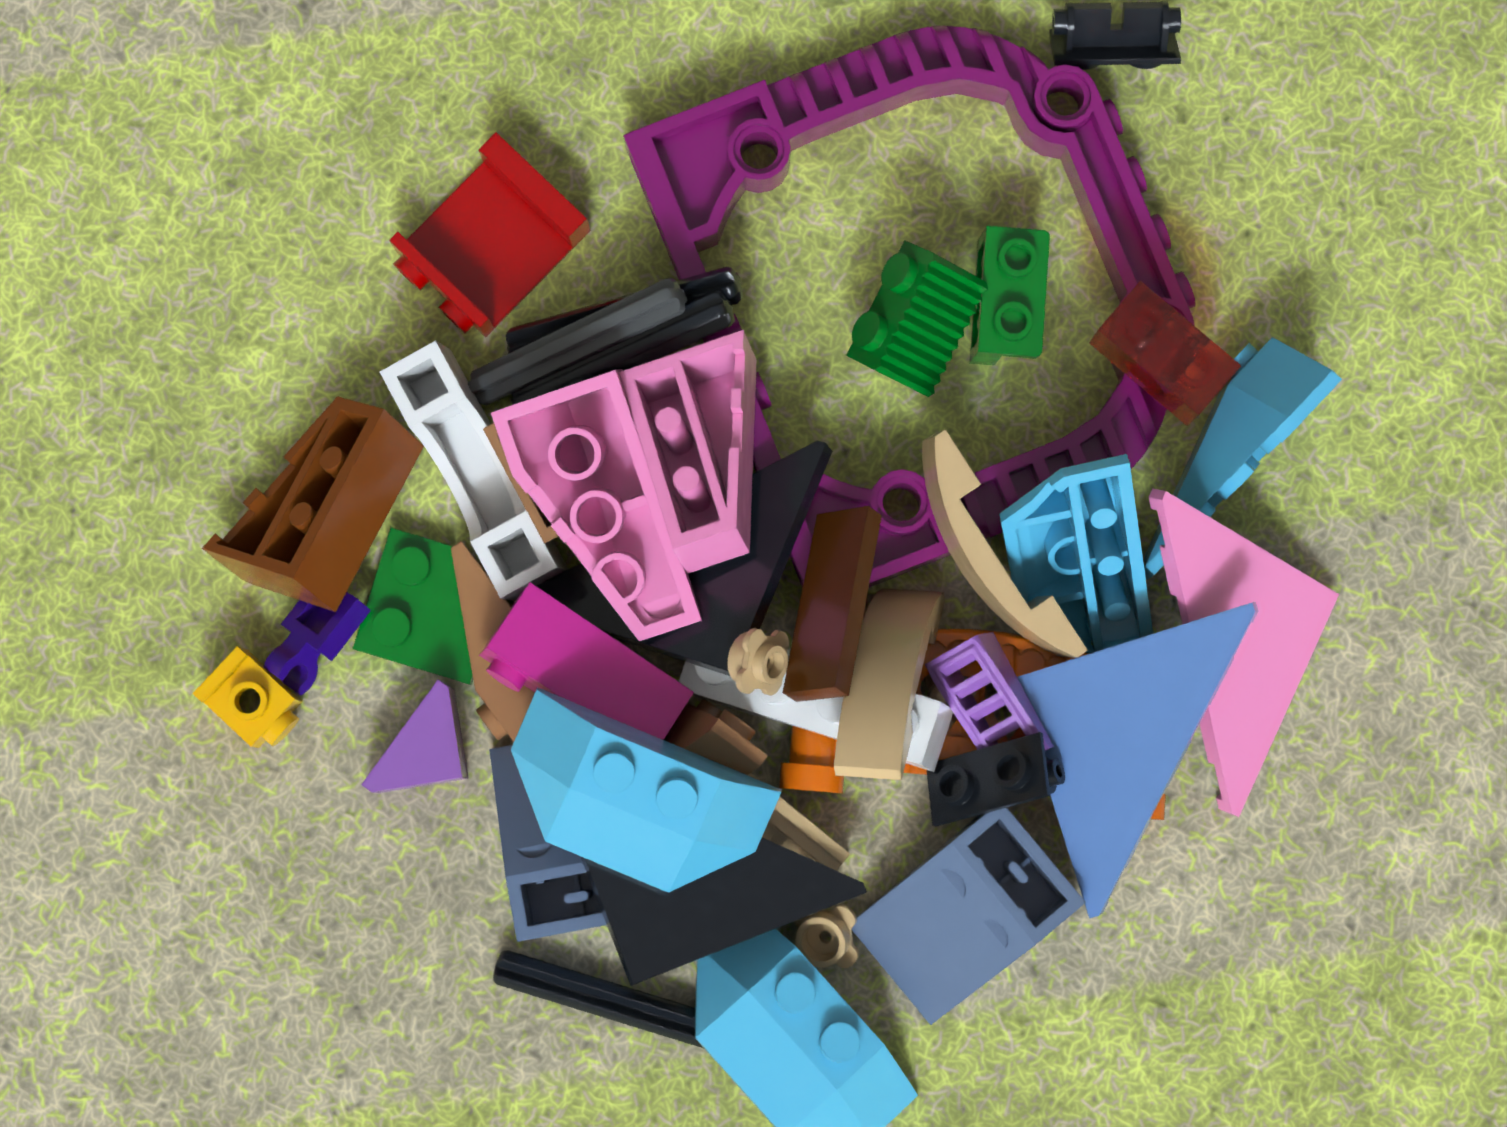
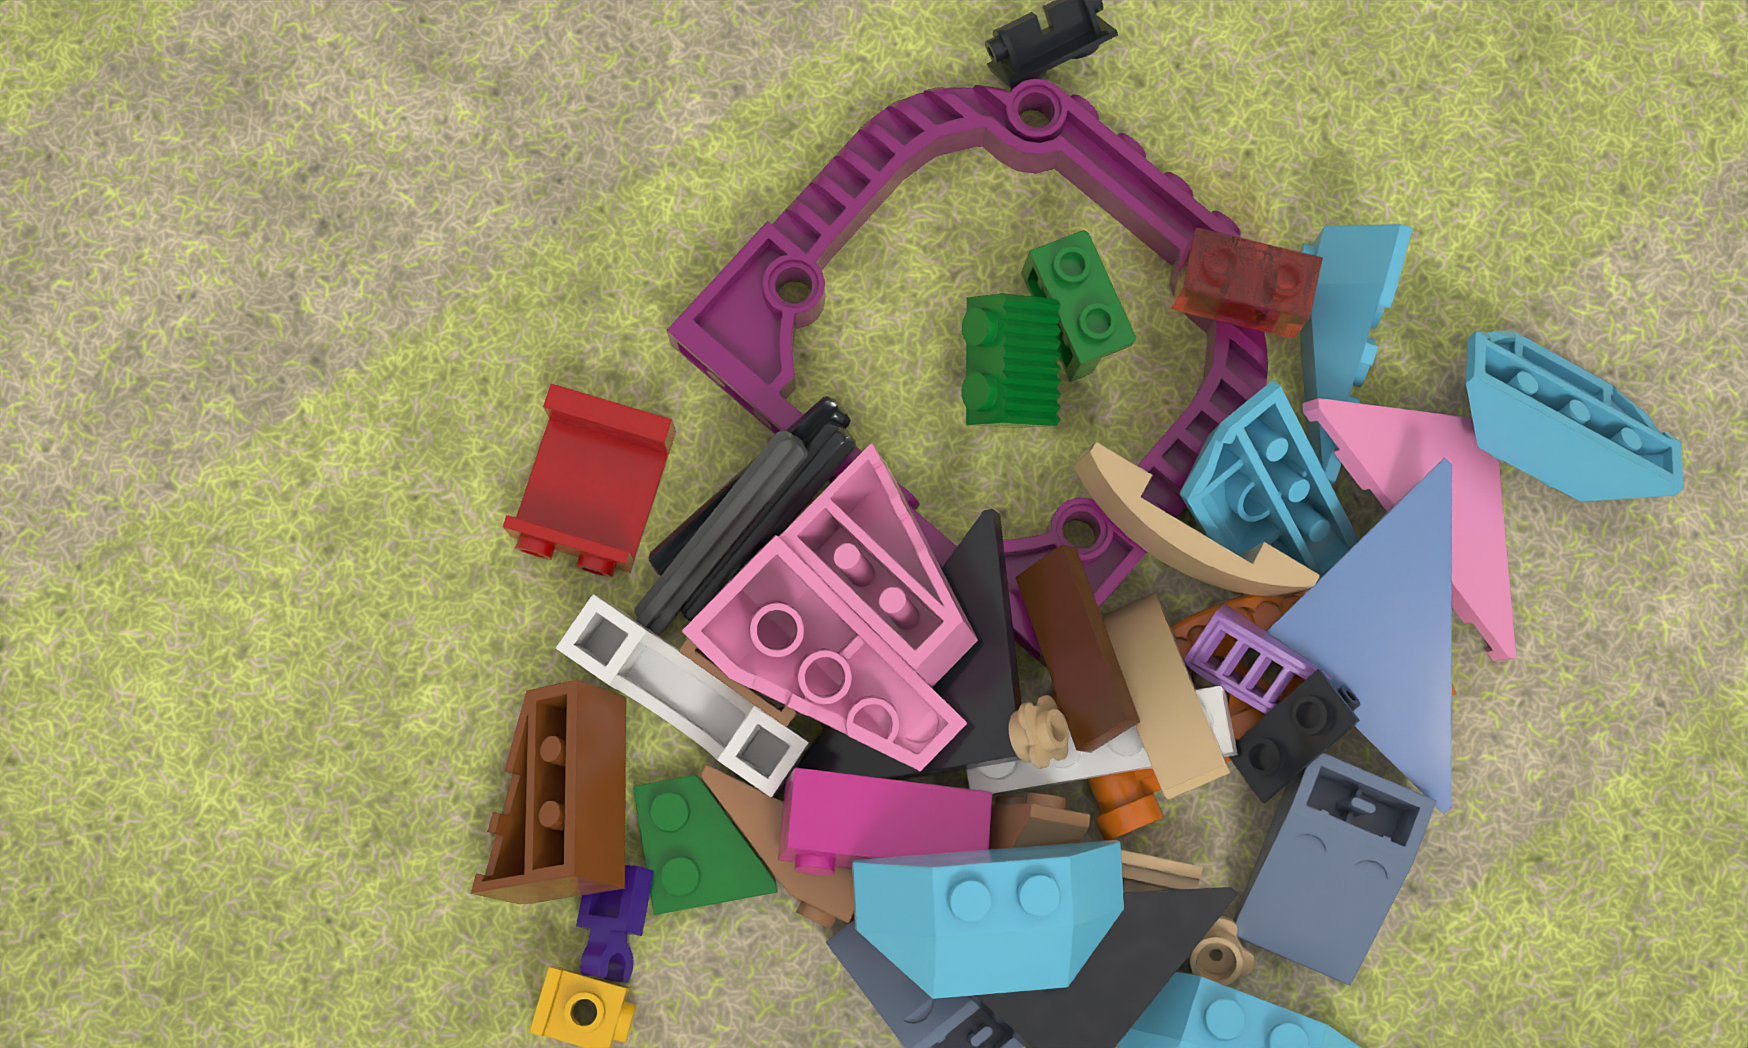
camera: 35 degrees left, 5 degrees down
(425, 749) = (768, 974): medium lavender slope -> none
(1396, 624) = (1565, 423): none -> medium azure wedge

